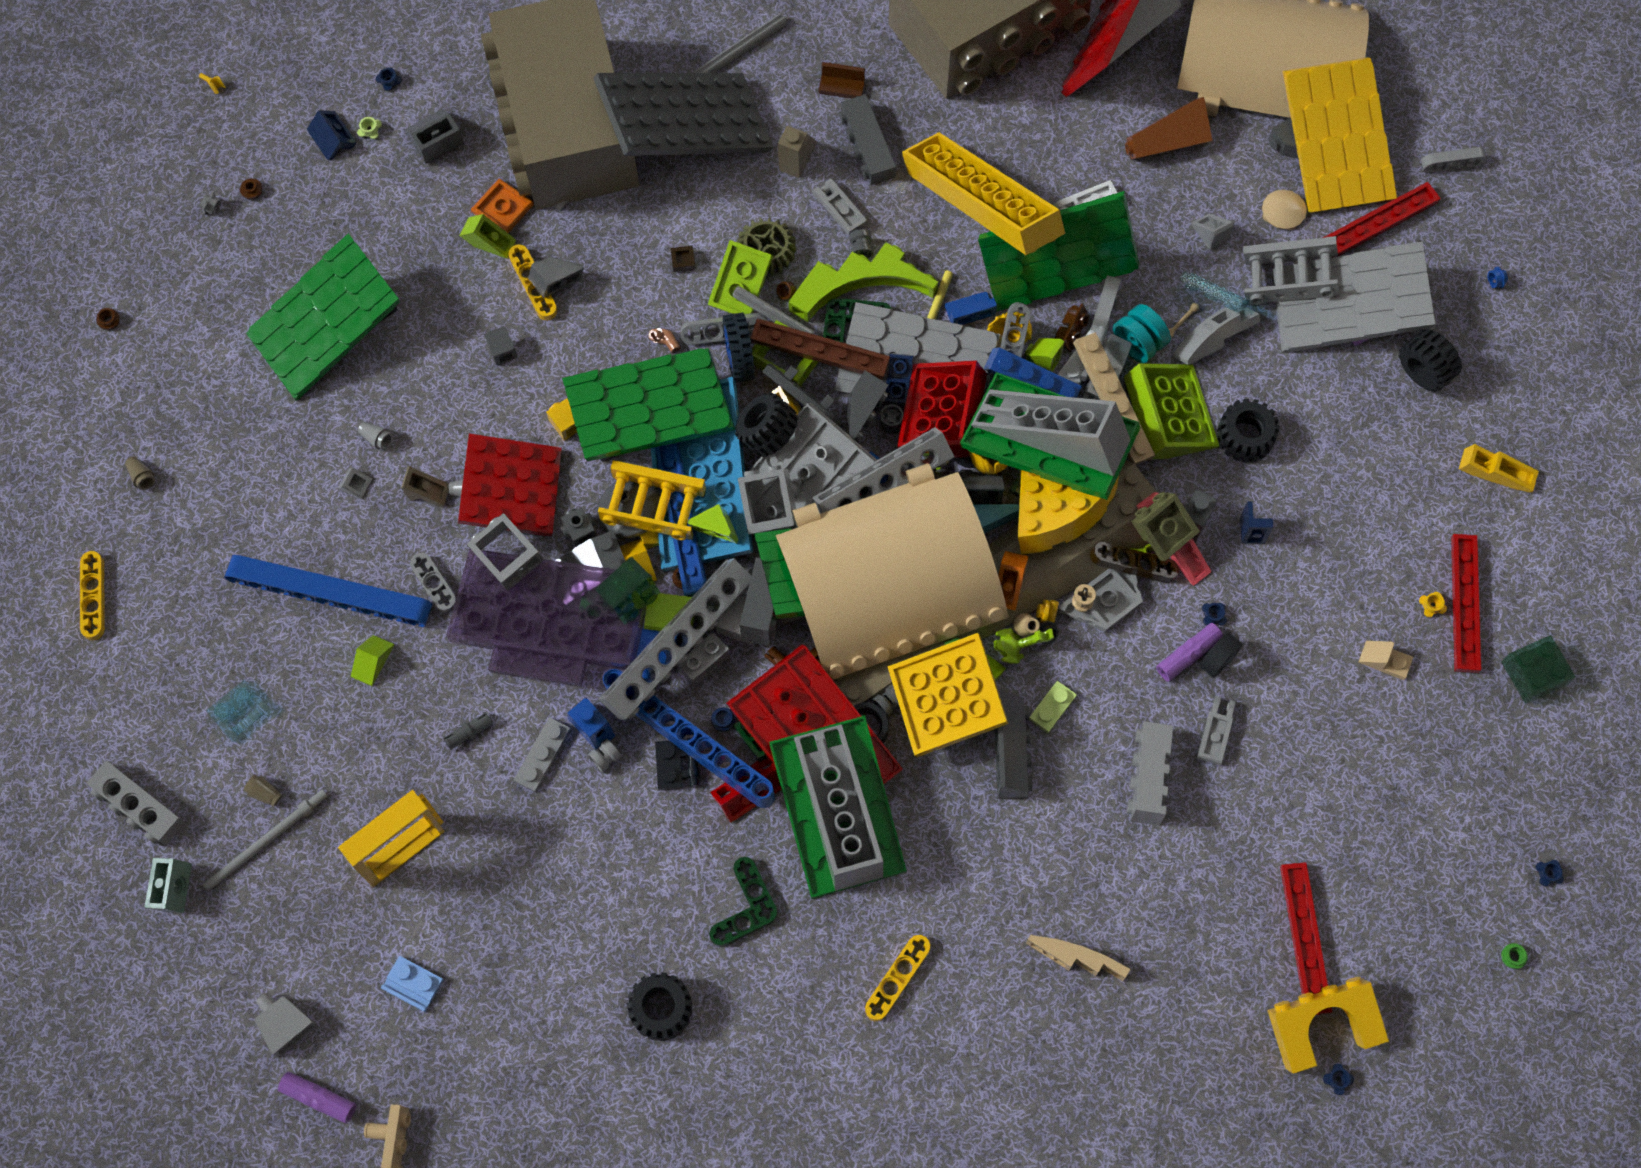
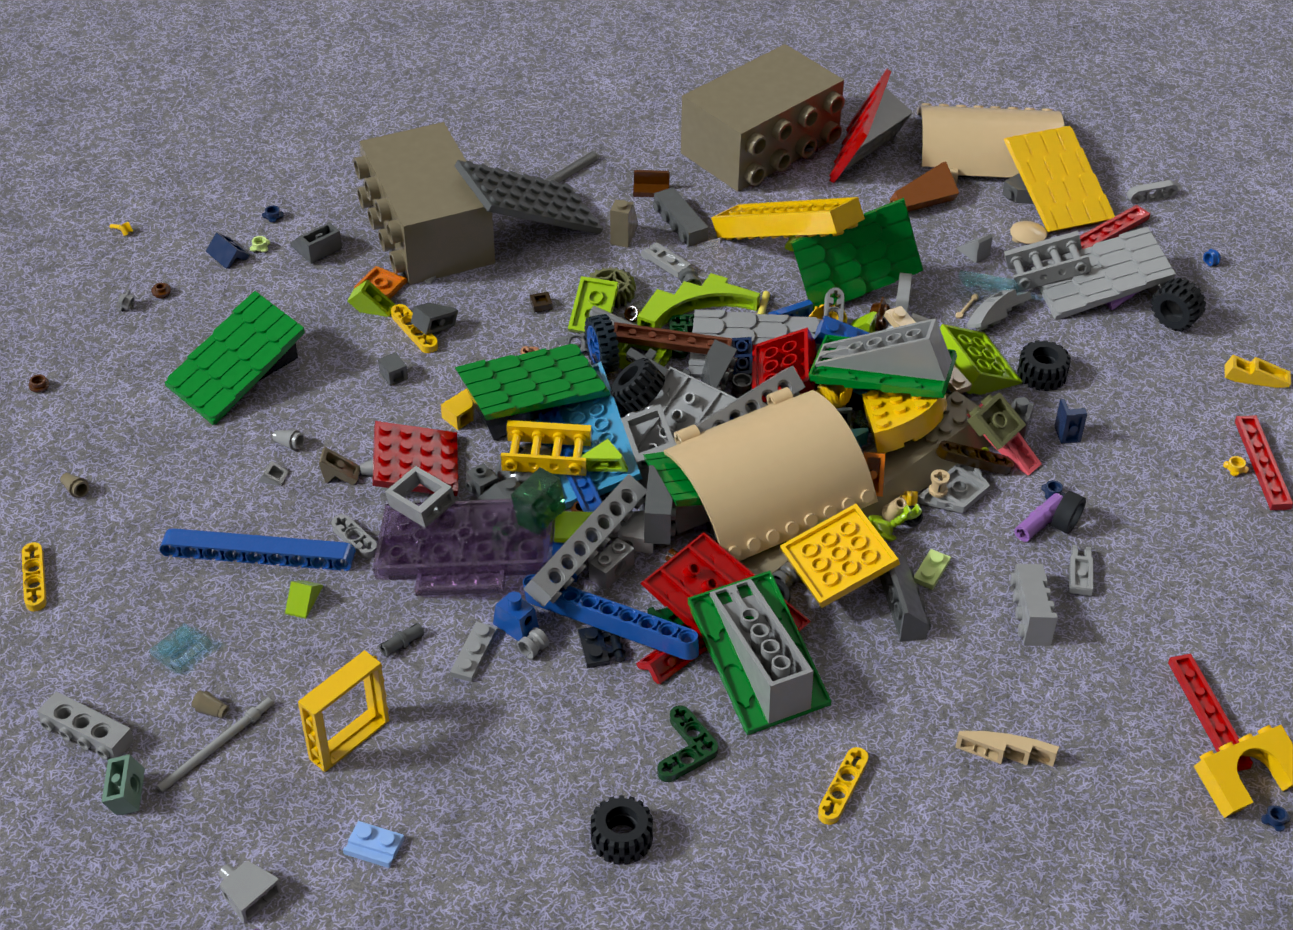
camera: 10 degrees left, 25 degrees down
(723, 719) = (638, 603): dark blue plate -> none
(1145, 332) = (941, 304): teal wheel -> none
(1384, 658) = (1205, 505): tan slope -> none

